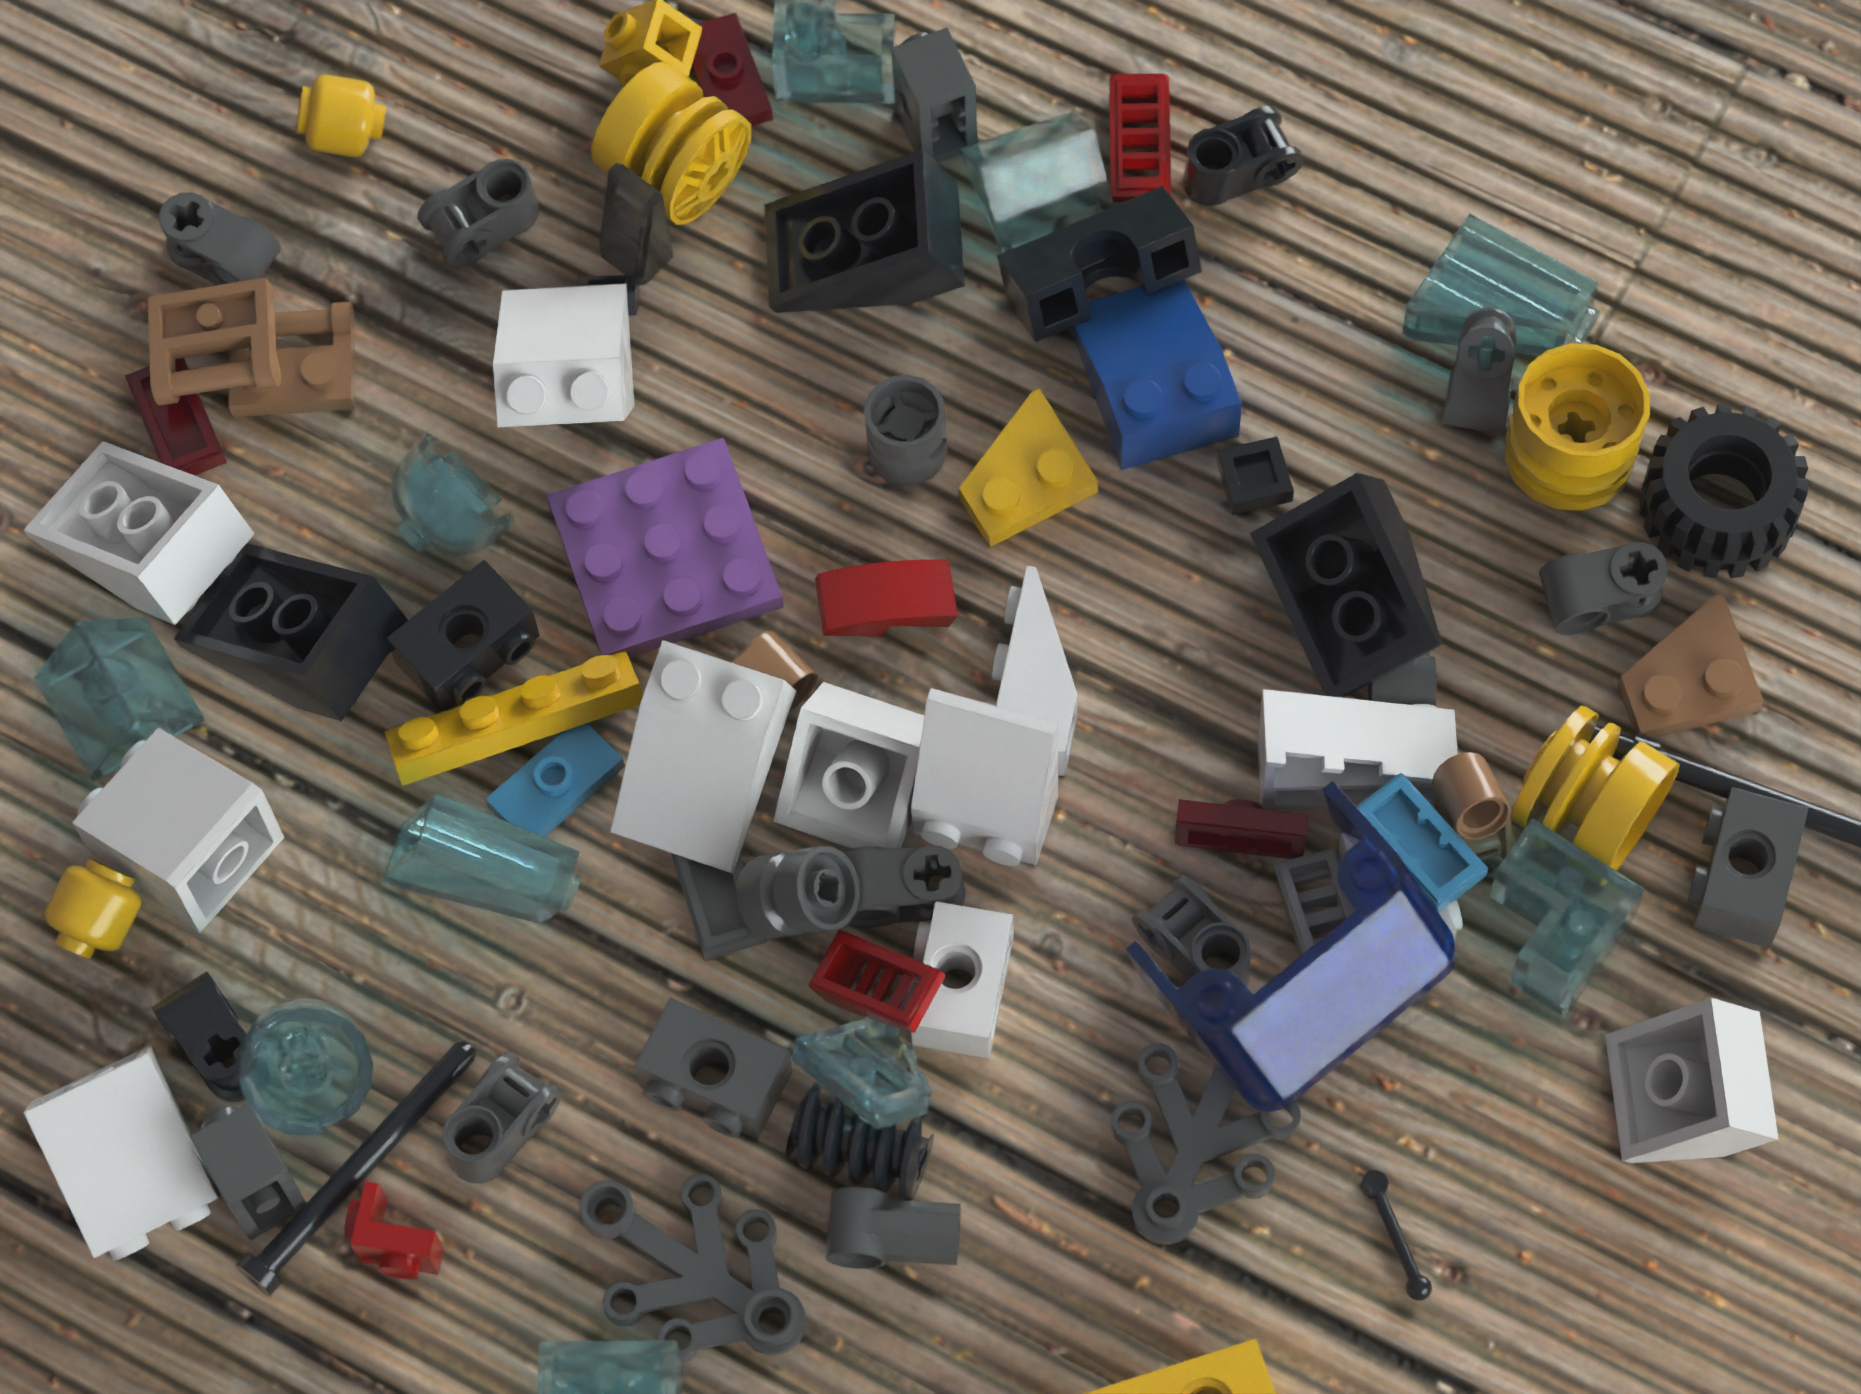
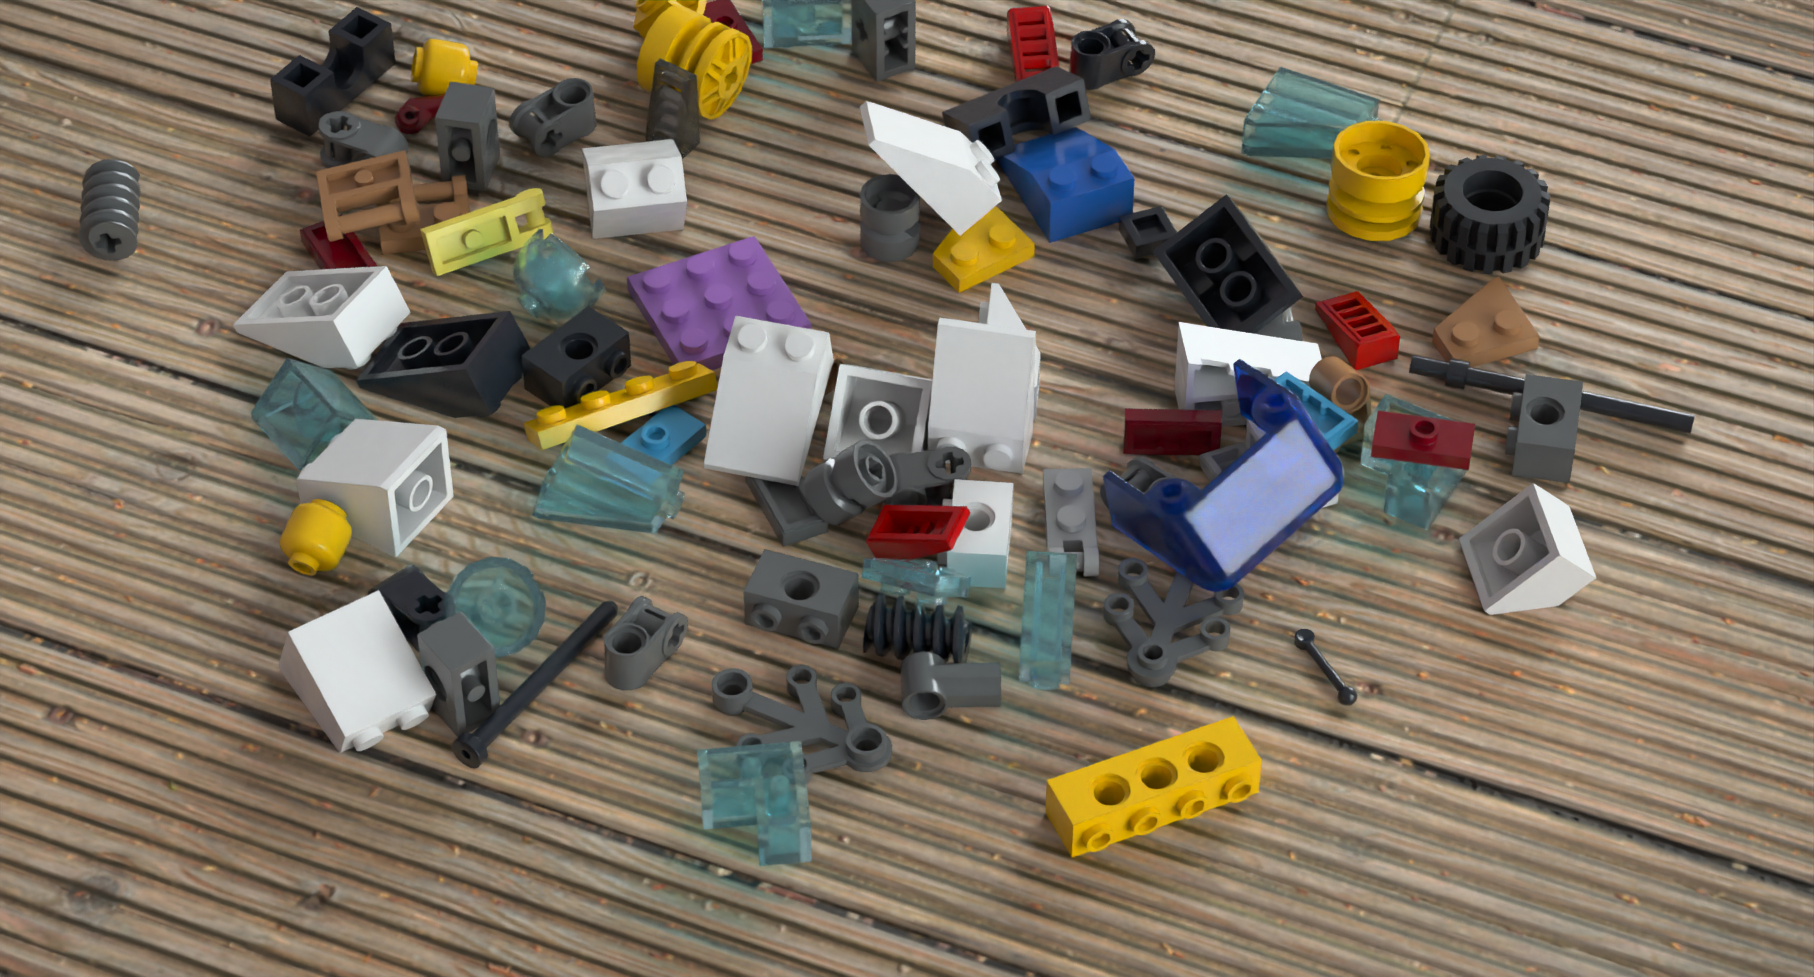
camera: 10 degrees left, 20 degrees down
(224, 91) = (356, 58): none -> black arch
(304, 179) = (417, 113): none -> dark red arm
(355, 248) = (468, 134): none -> dark grey brick
(369, 406) = (485, 232): none -> light yellow plate
(395, 1248) = (571, 720): red bracket -> none
(866, 239) = (824, 116): black slope -> none
(886, 594) = (879, 318): red slope -> none
(966, 363) = (935, 163): none -> white slope
(1032, 1146) = (1048, 619): none -> clear light blue slope
(1038, 178) = (961, 74): clear light blue slope -> none
(1087, 961) = (1071, 516): none -> light grey plate
(1482, 379) = (1304, 169): dark grey piece -> none
(1528, 706) = (1360, 351): none -> red slope
(1571, 912) = (1423, 440): none -> dark red plate
(1592, 790) = (1427, 377): yellow wheel -> none
(1594, 588) = (1408, 277): dark grey piece -> none

